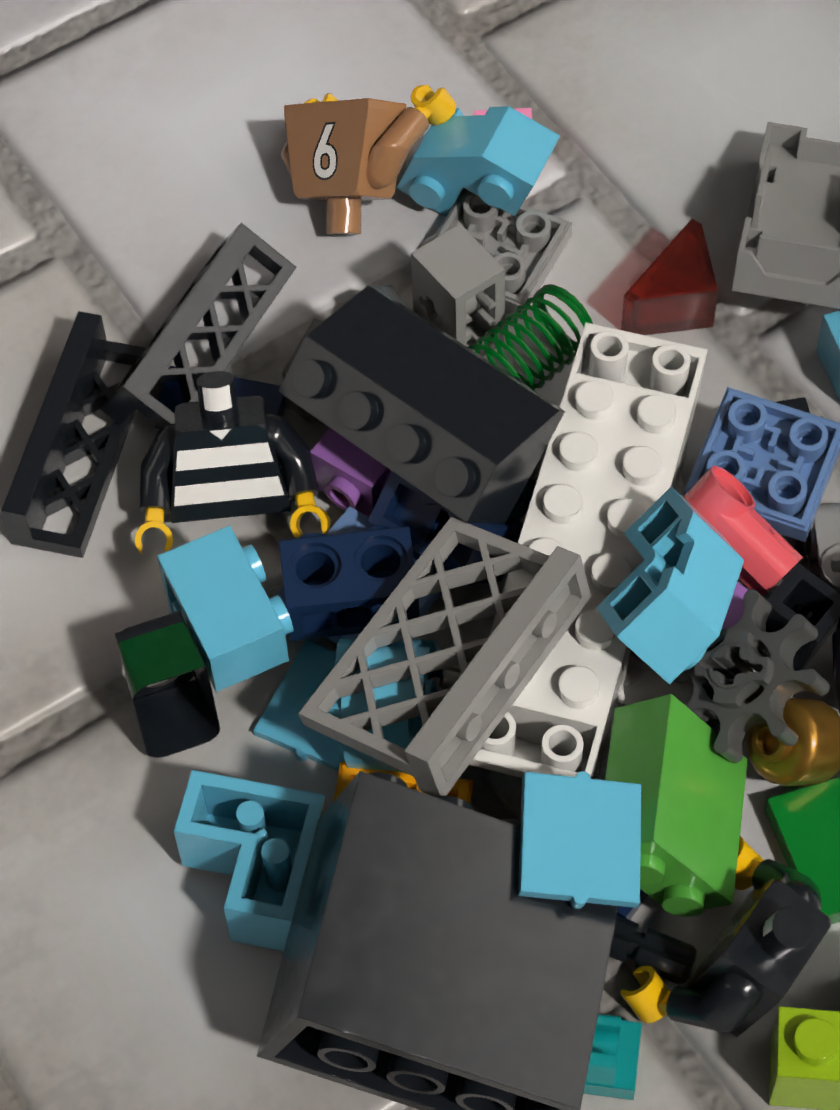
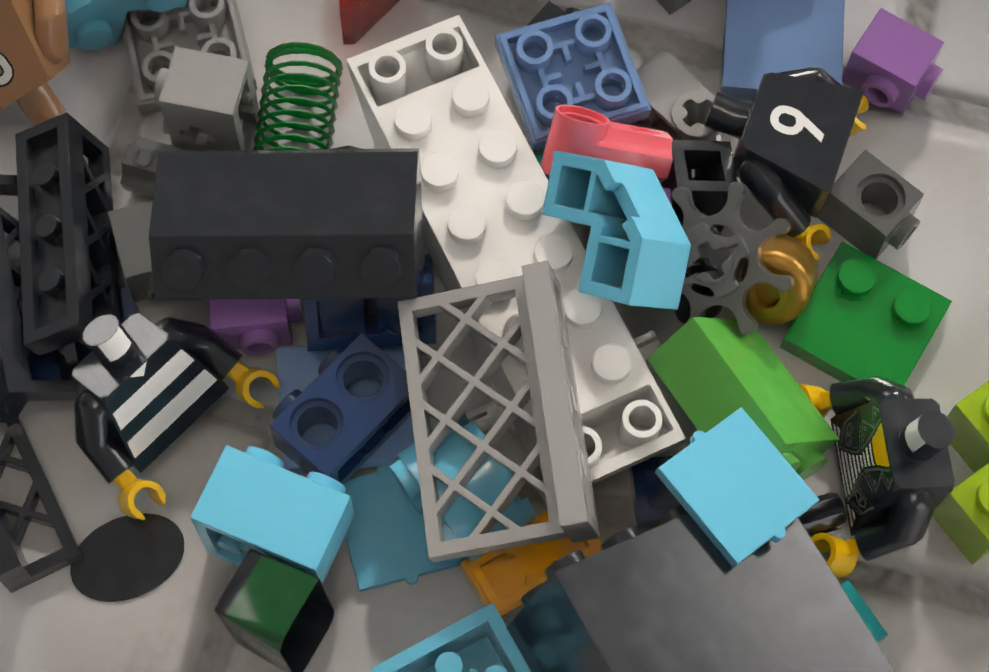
camera: 45 degrees left, 10 degrees up
(112, 581) = (127, 557): none -> black sticker
(269, 303) = (64, 233): none -> black fence

